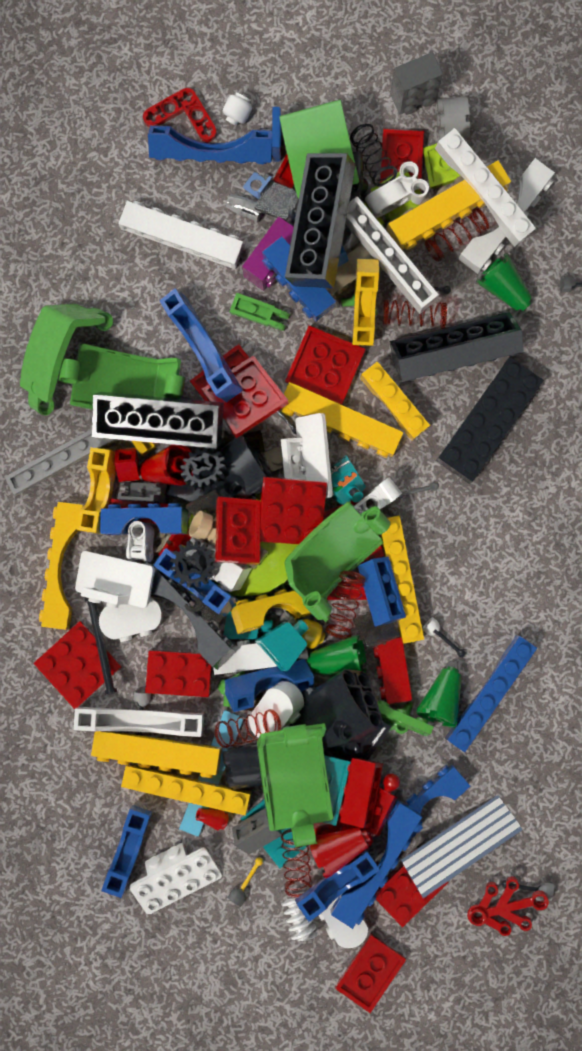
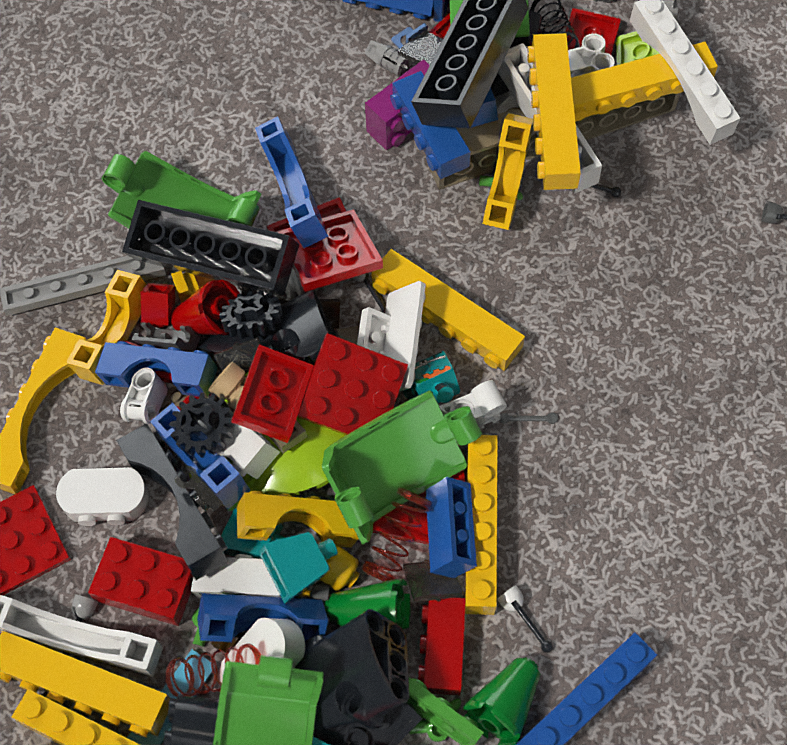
camera: 10 degrees right, 20 degrees down
(48, 346) = (99, 150): bright green panel -> none
(101, 648) = (42, 578): black bar -> none
(114, 580) = (96, 437): white bracket -> none
(181, 234) = (303, 70): white brick -> none
(257, 311) = (373, 169): bright green hinge -> none
(325, 364) = (444, 241): red plate -> none
(386, 314) = (533, 196): clear red piece -> none
(395, 257) = (555, 112): none -> yellow brick
(395, 400) = (532, 314): yellow arch -> none
(440, 254) = (612, 138): clear red piece -> none
(456, 346) = (616, 249): black brick -> none
(481, 248) = (669, 152): white arch -> none
(489, 420) = (641, 349): black brick -> none
(506, 283) = (692, 194): green cone -> none

